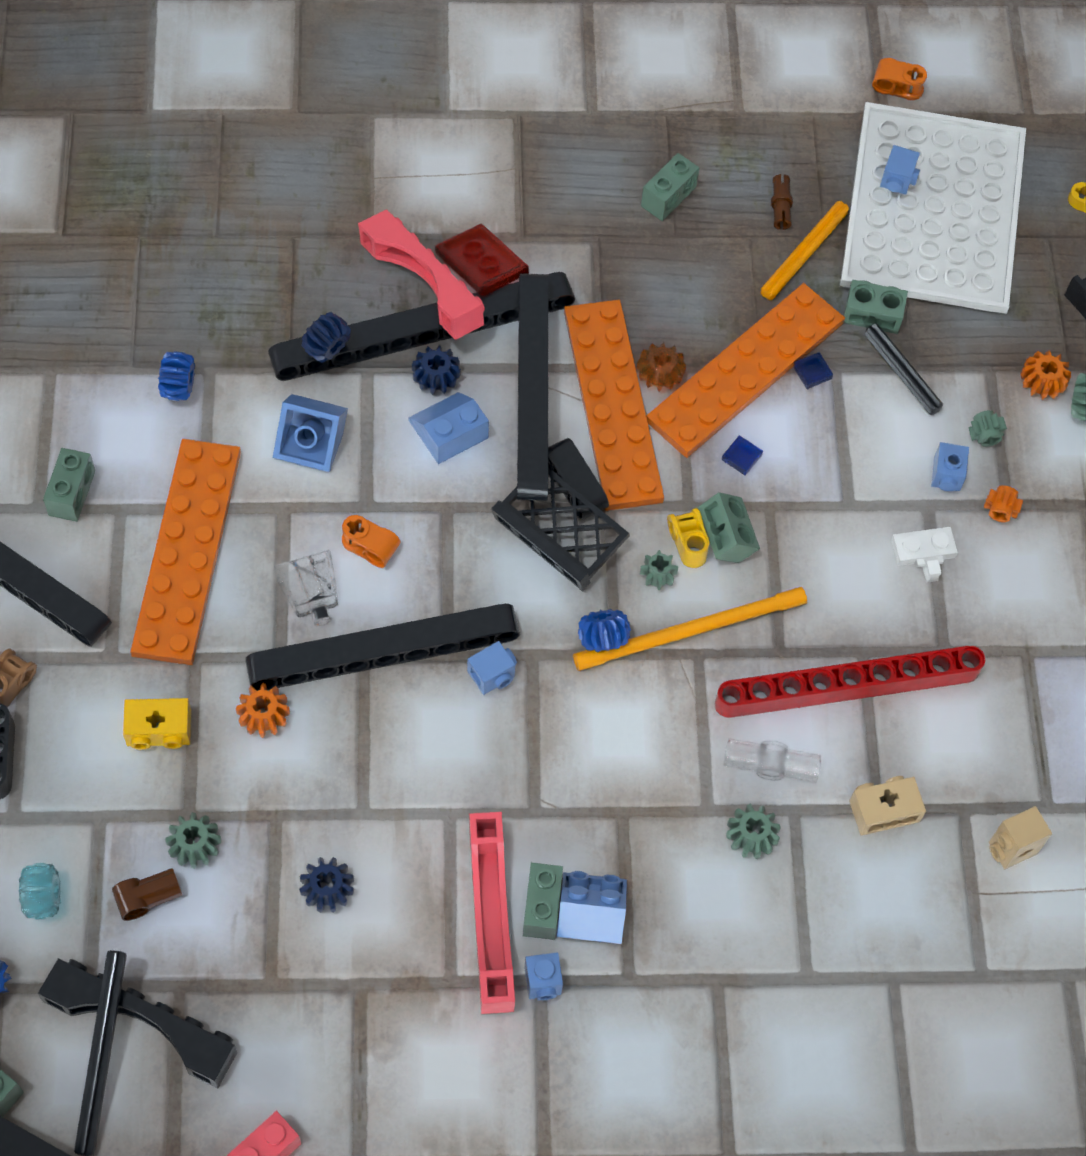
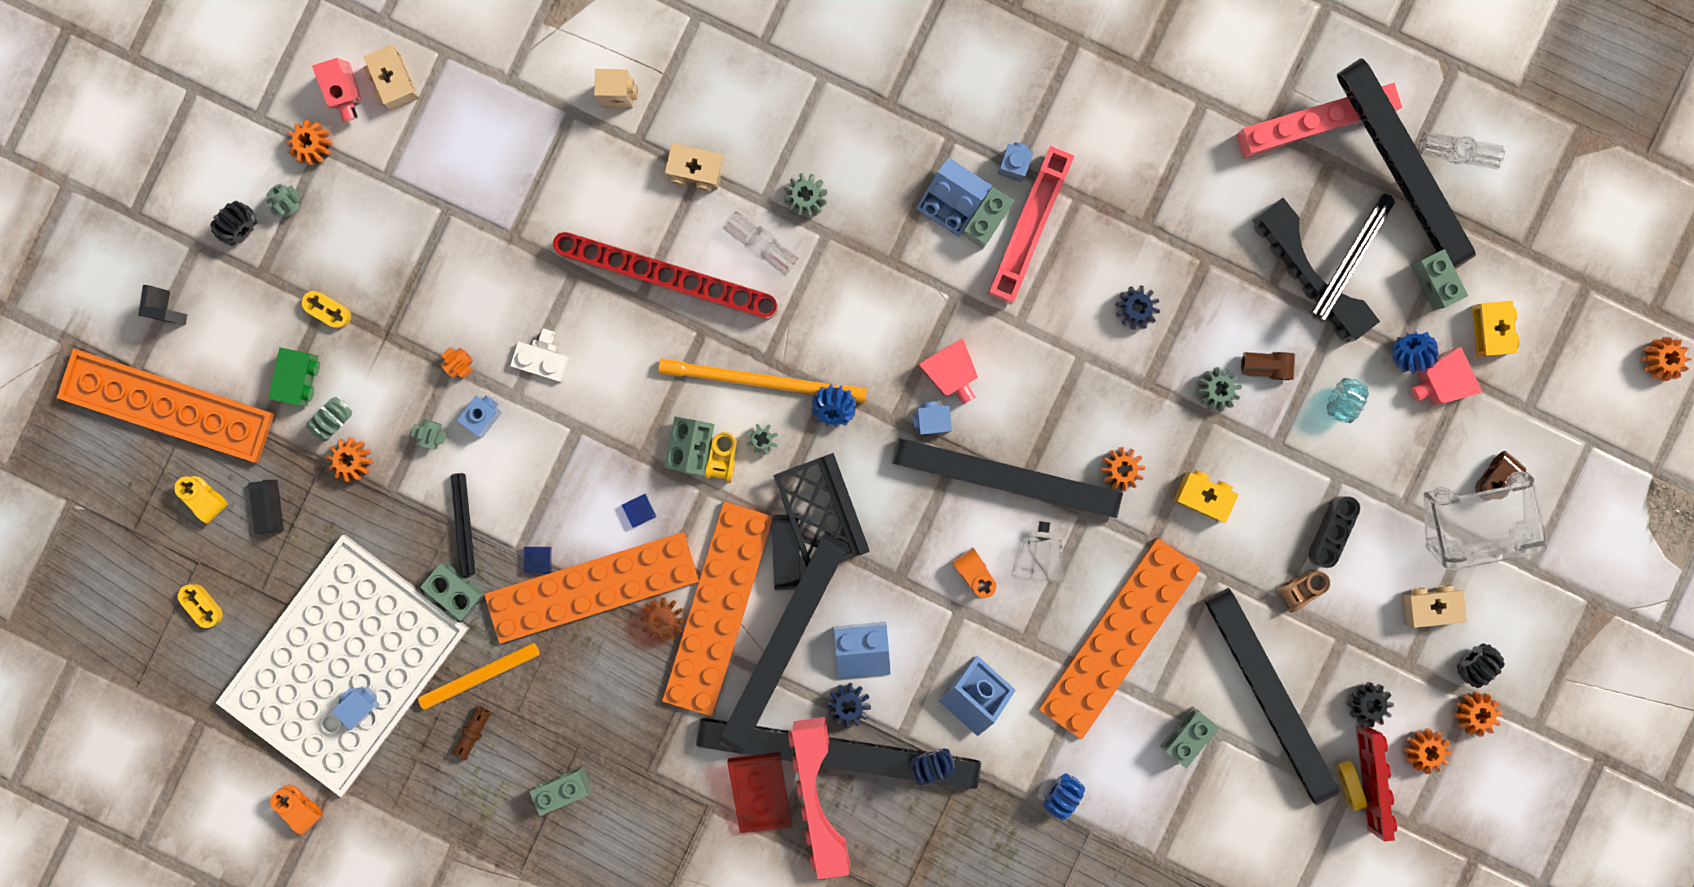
camera: 145 degrees left, 25 degrees up
(498, 724) = (951, 371): none -> coral torso

